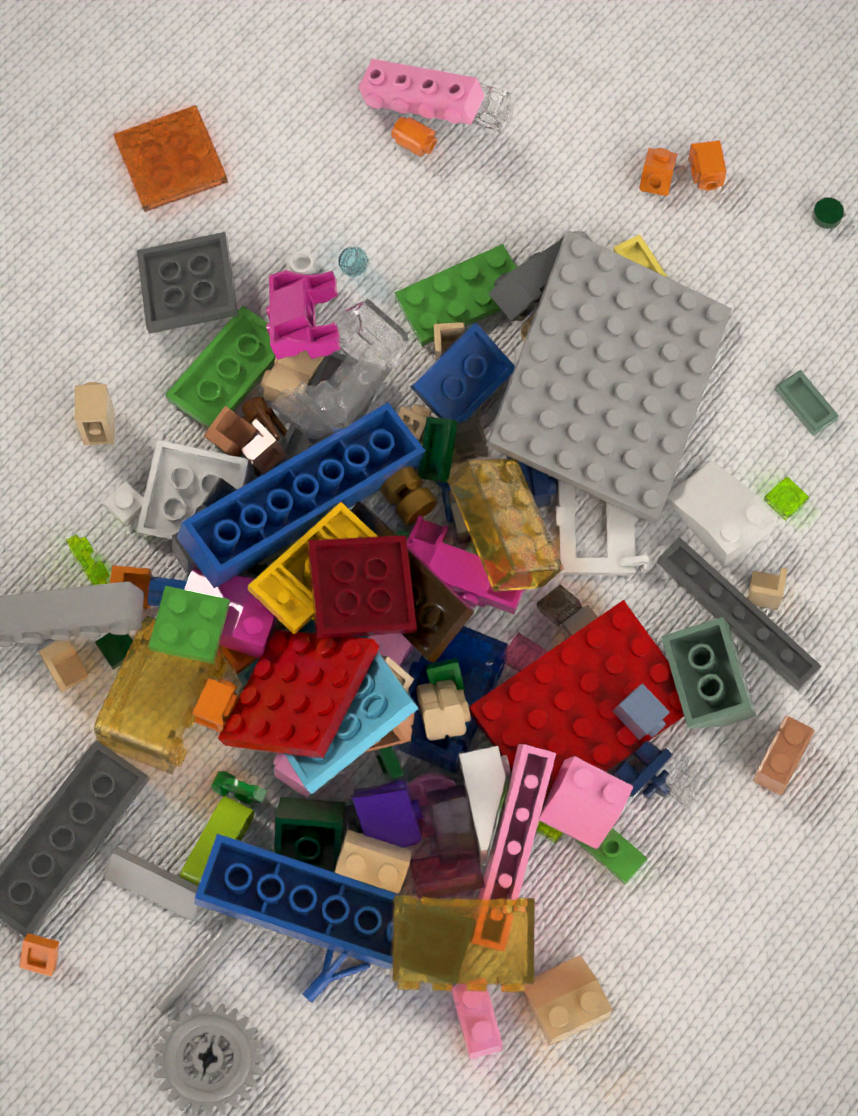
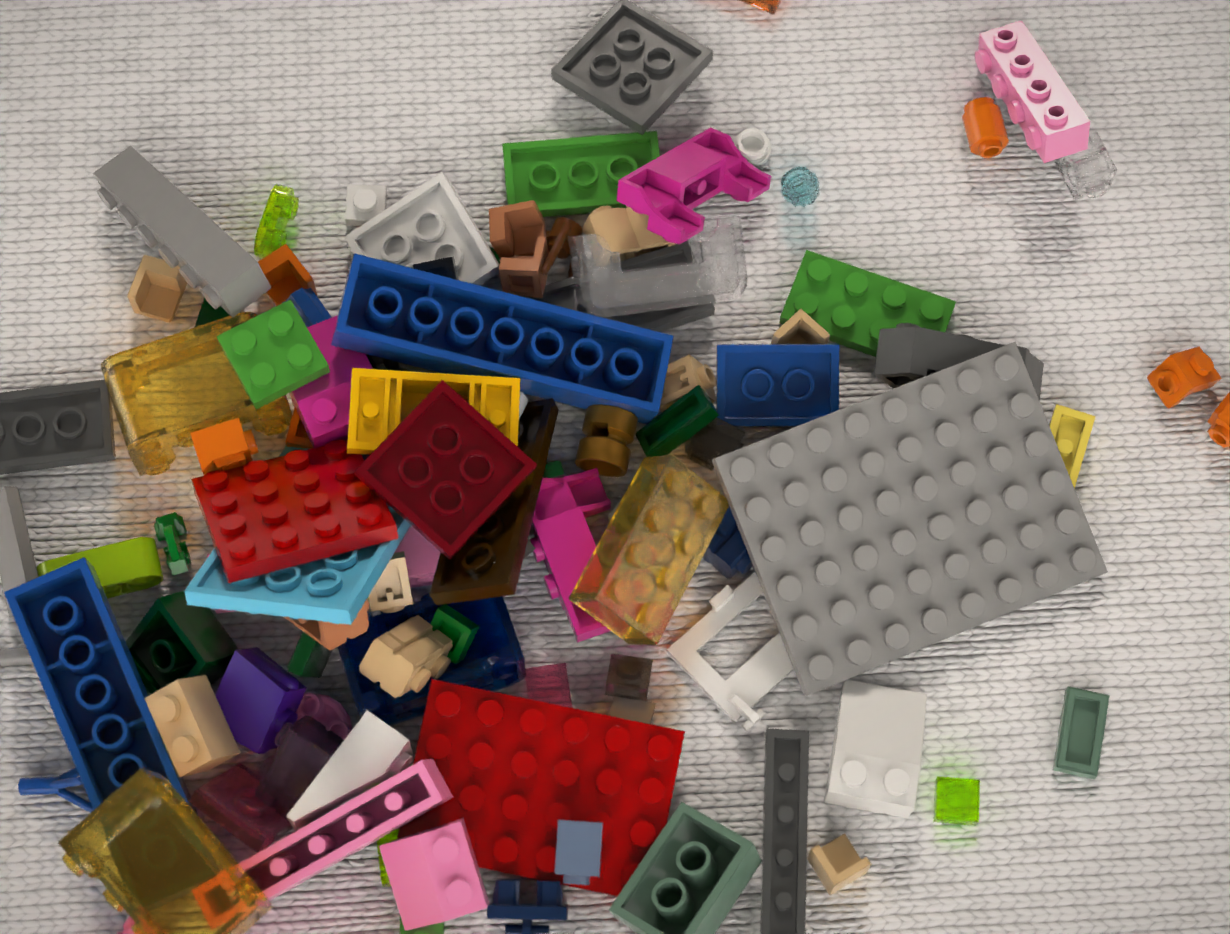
camera: 45 degrees right, 0 degrees up
(94, 414) = (420, 99): tan brick -> none

